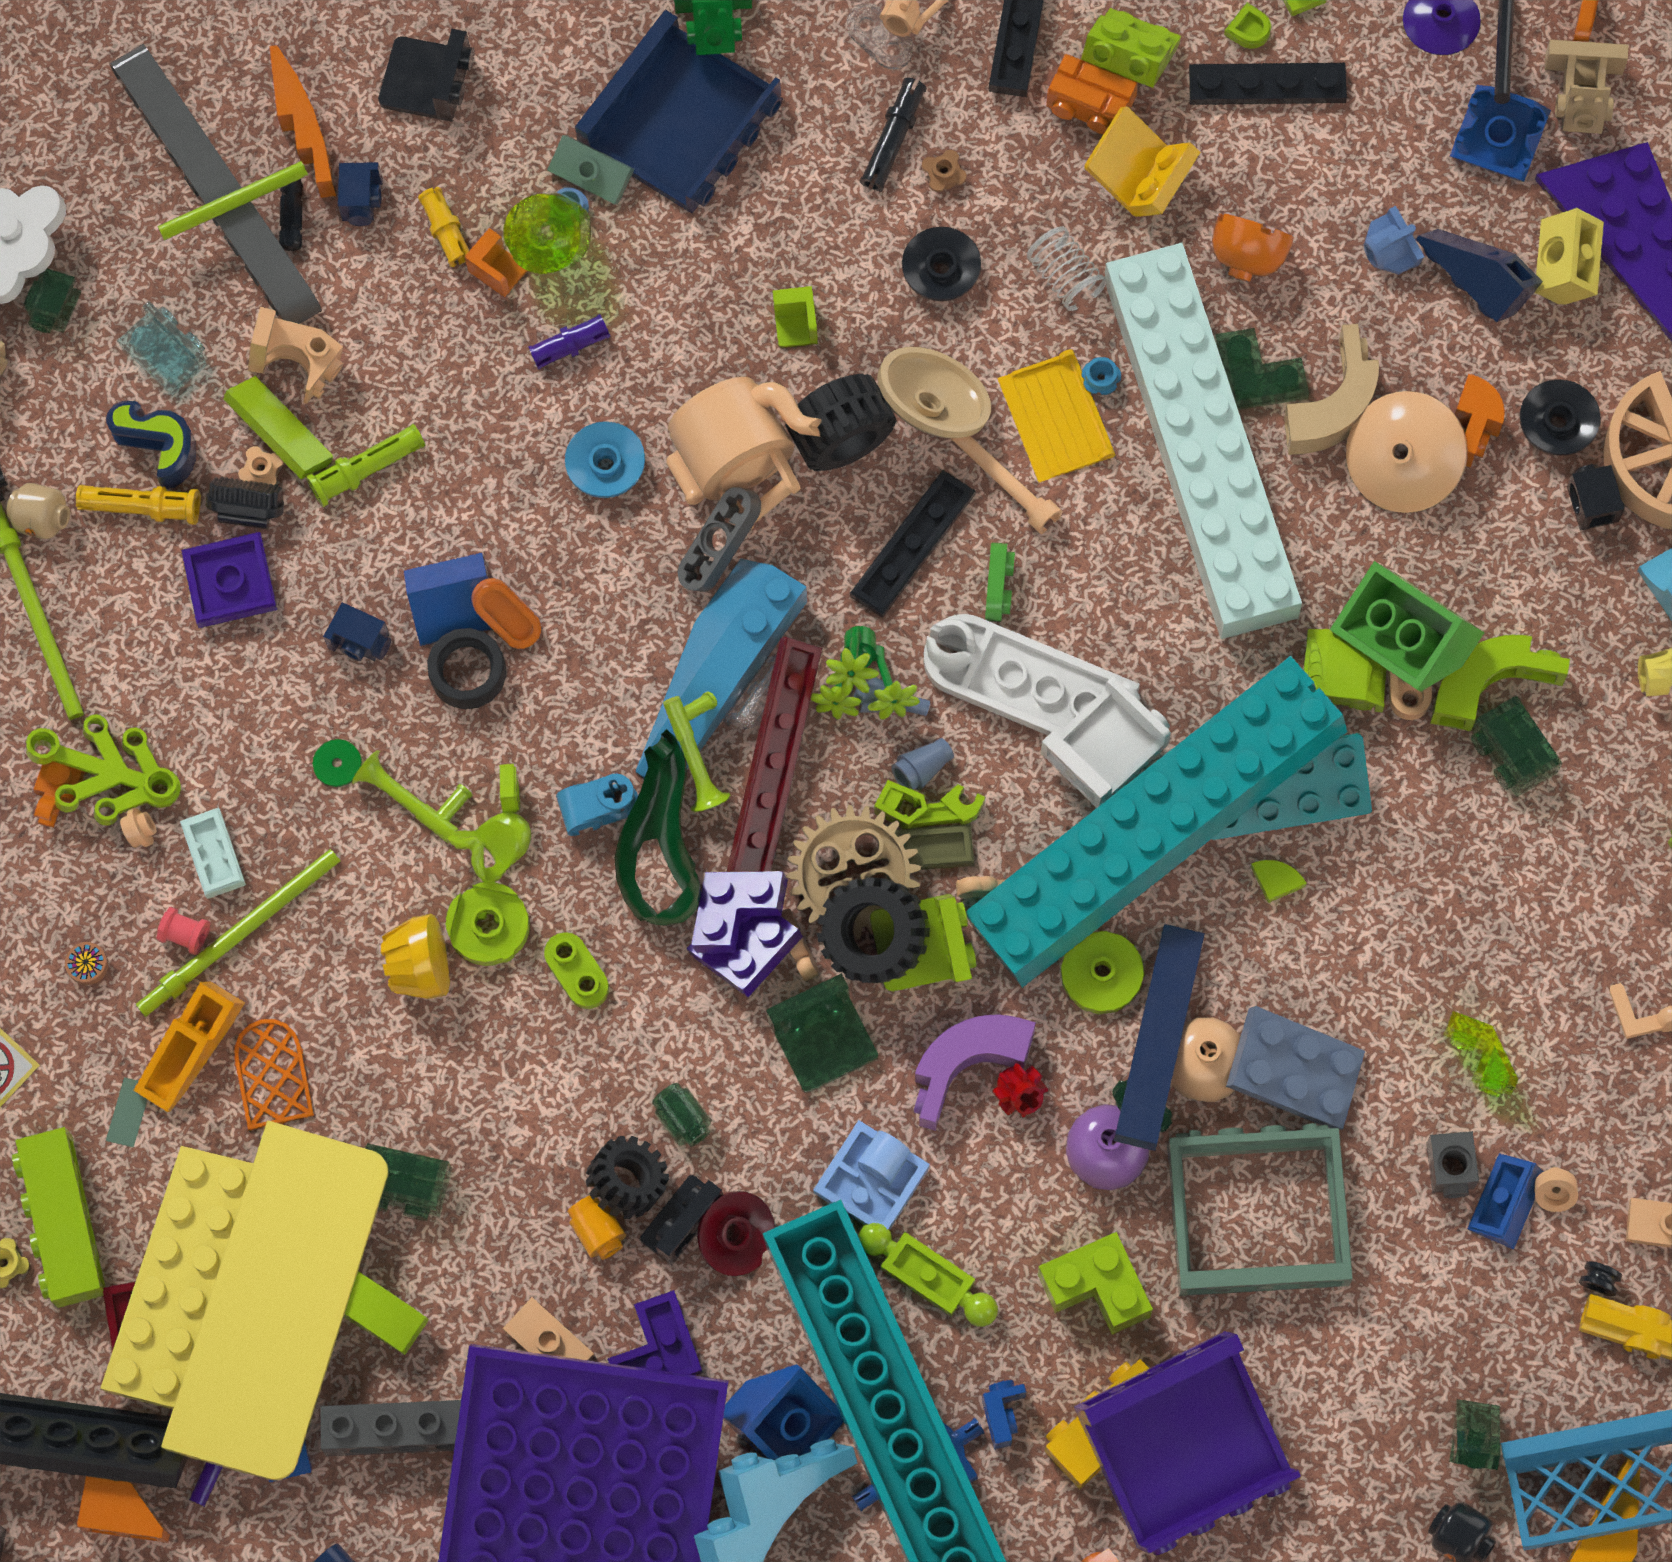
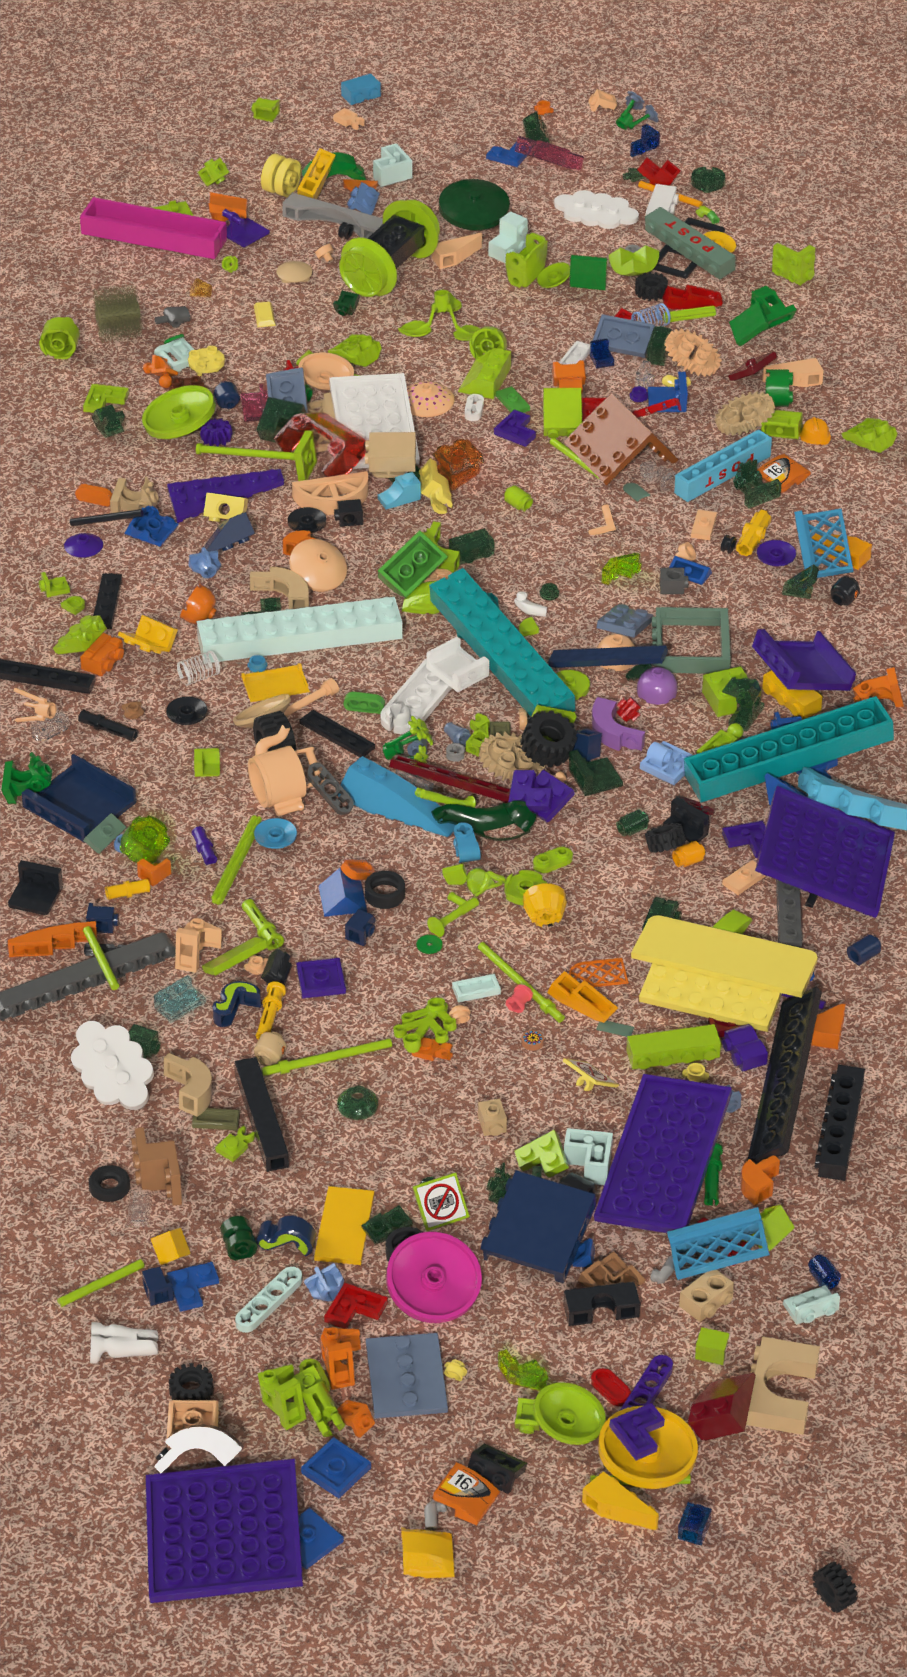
camera: 90 degrees left, 30 degrees down
(63, 1351) = (745, 1047): none -> dark purple brick
(538, 402) = (235, 861): none -> lime axle
(879, 754) = (455, 757): none -> light grey bush
(894, 1010) = (588, 743): none -> dark blue brick
(1048, 1322) = (748, 697): none -> clear green tile
(1342, 873) = (529, 607): none -> white arm
(1394, 914) = (549, 591): none -> clear green plate
(1594, 1367) = (776, 553): none -> dark purple dish

